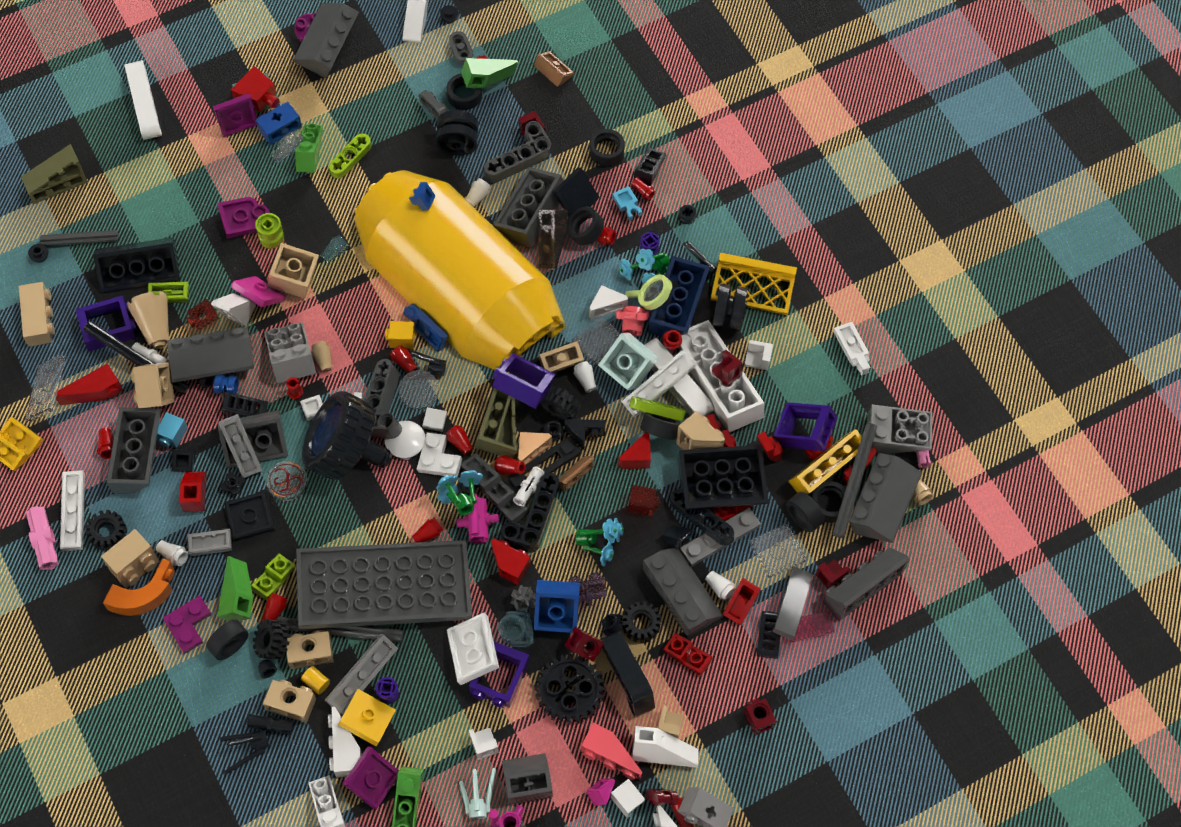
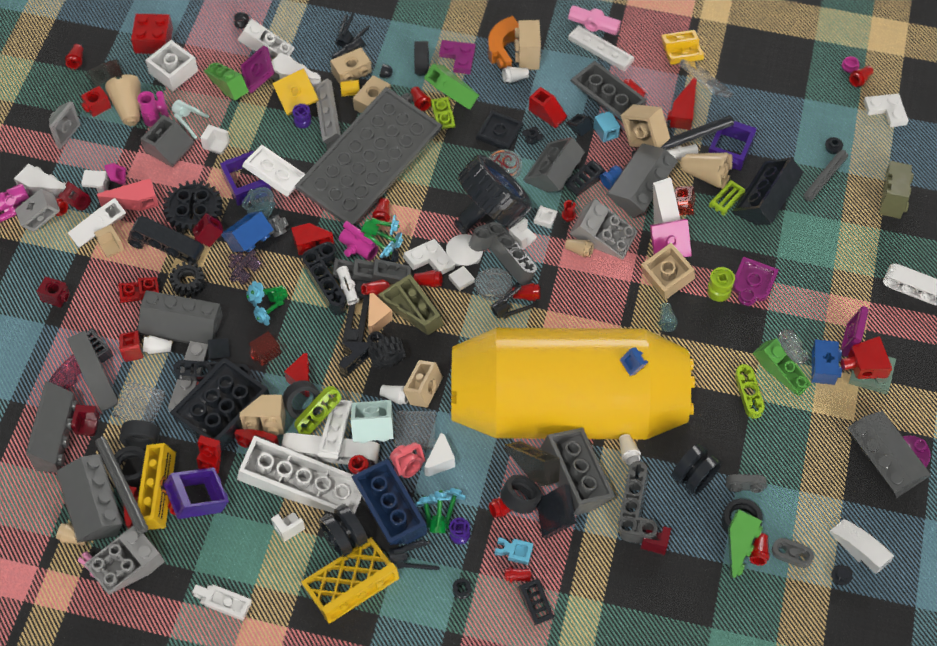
camera: 135 degrees right, 5 degrees down
(36, 314) = (778, 111): tan brick -> none
(101, 520) = (566, 60): black tyre -> none
(209, 542) = (501, 97): light grey plate -> none
(240, 445) = (550, 145): light grey plate -> none
(271, 639) = (397, 78): black tyre -> none
(400, 334) = (548, 304): yellow brick -> none
(426, 327) = (541, 323): blue hinge -> none
(519, 388) = (449, 335): dark purple window -> none
(553, 68) = (708, 613): medium nougat slope -> none
(576, 472) = (331, 328): medium nougat slope -> none
(606, 159) = (583, 565): black tyre -> none
(612, 623) = (205, 261): black plate -> none
(653, 292) = (408, 482): yellowish green piece -> none
(729, 369) = (291, 474): dark red panel -> none

